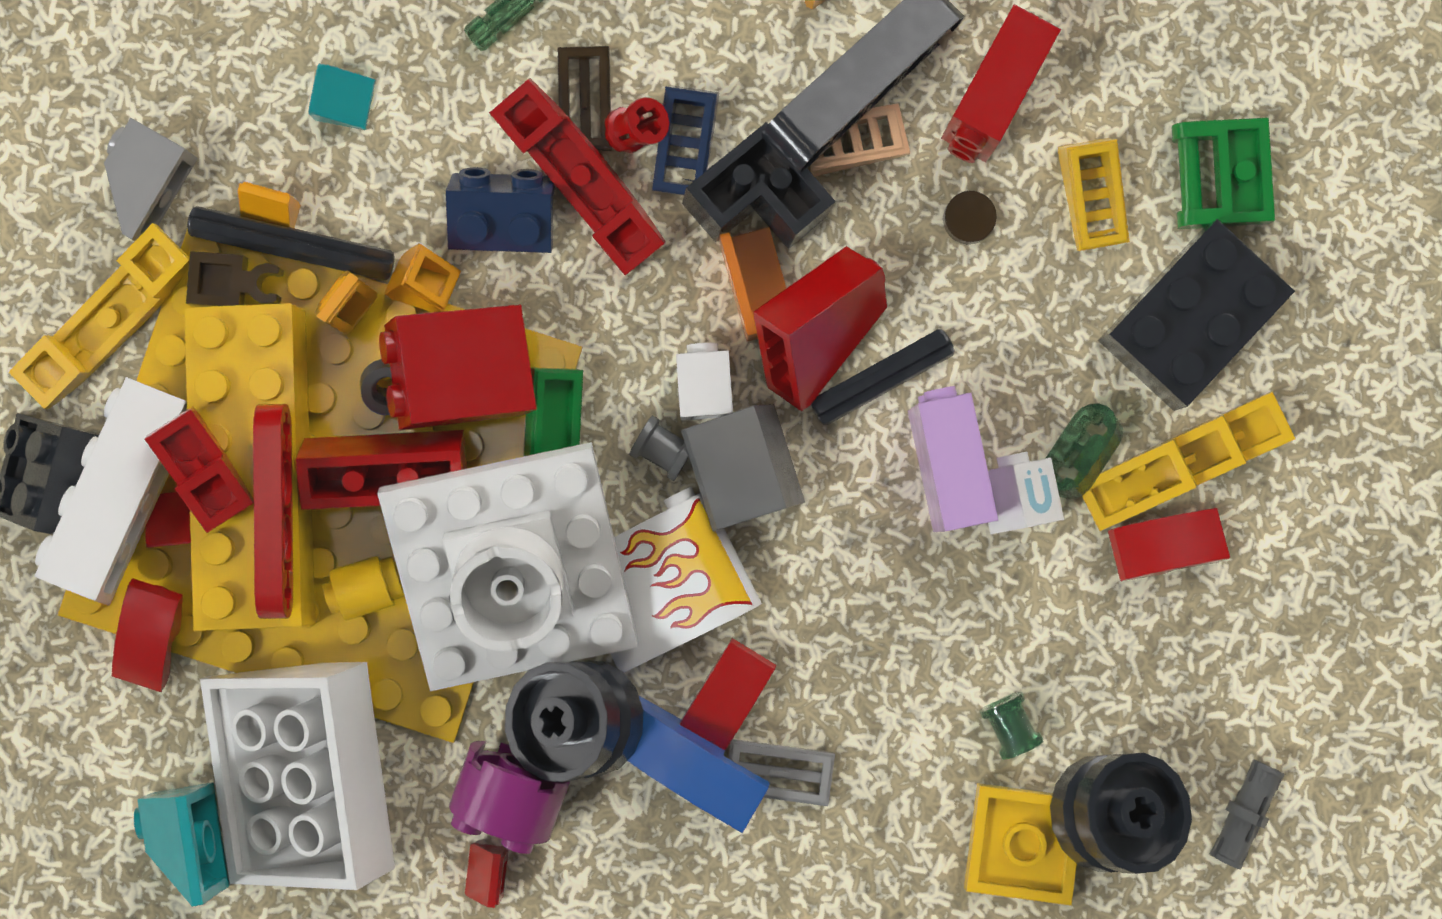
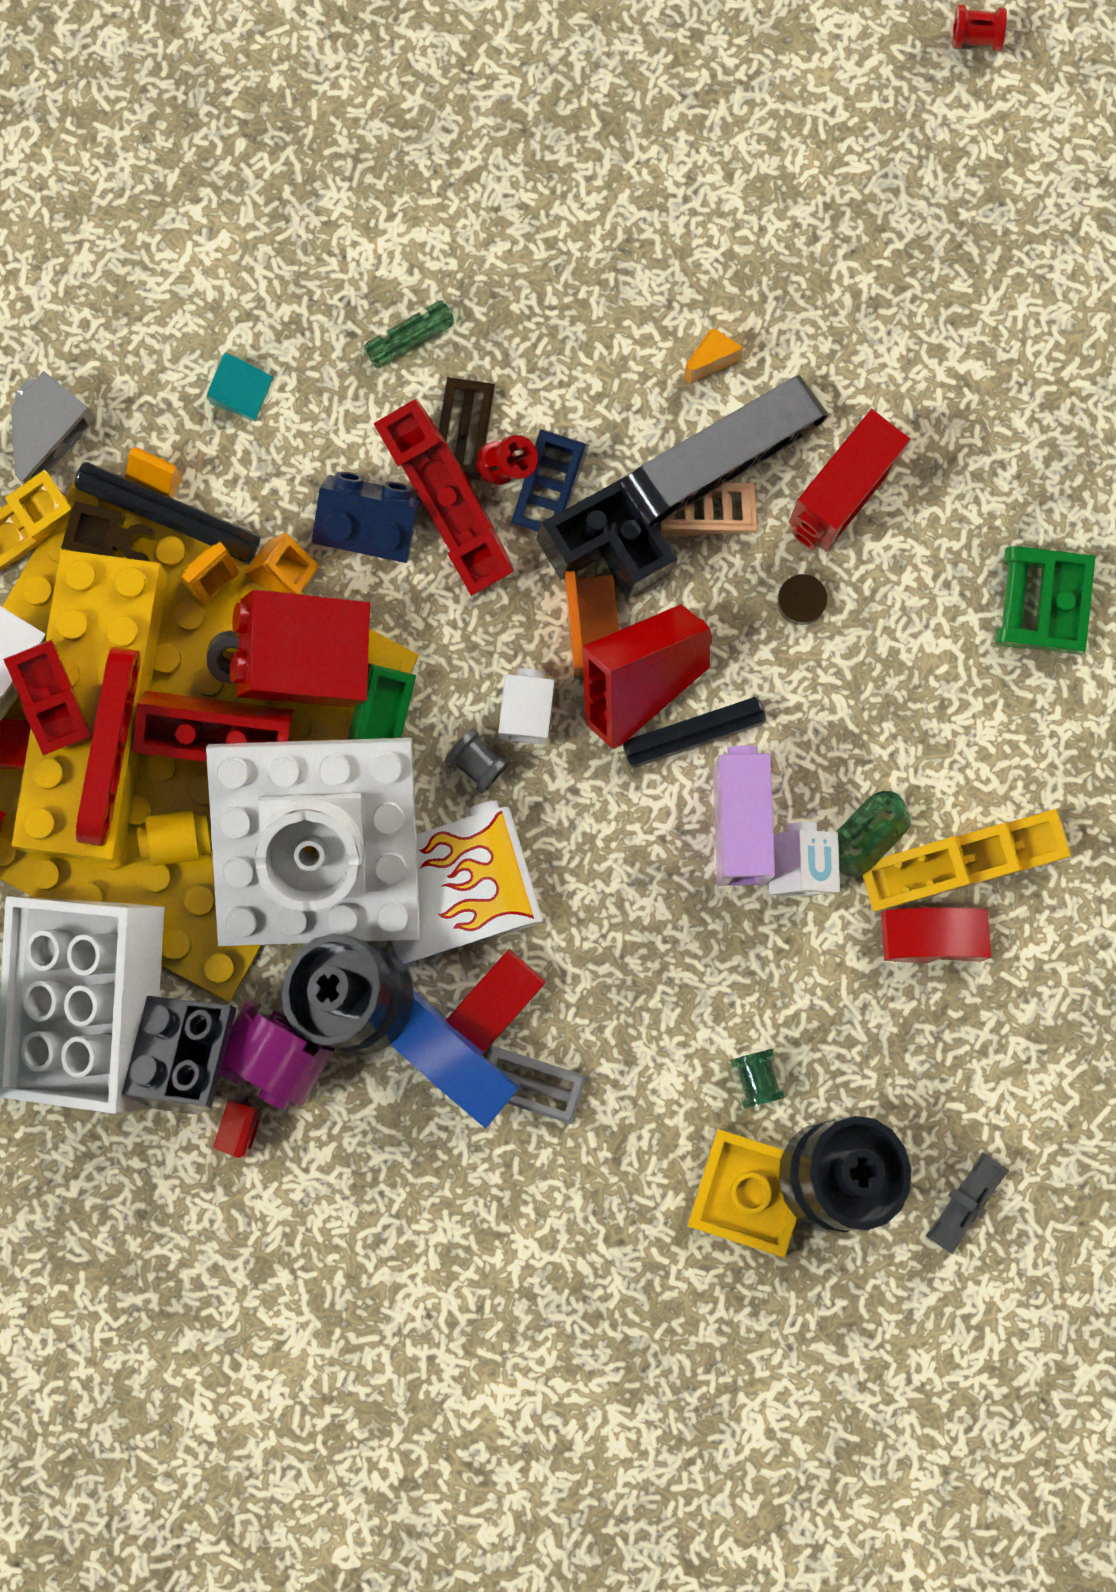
camera: 10 degrees right, 5 degrees down
(410, 815) = (179, 1054): none -> black slope
(742, 466) = (549, 789): dark grey slope -> none
(1072, 177) = (941, 579): yellow slope -> none
(1196, 315) = (996, 725): black brick -> none

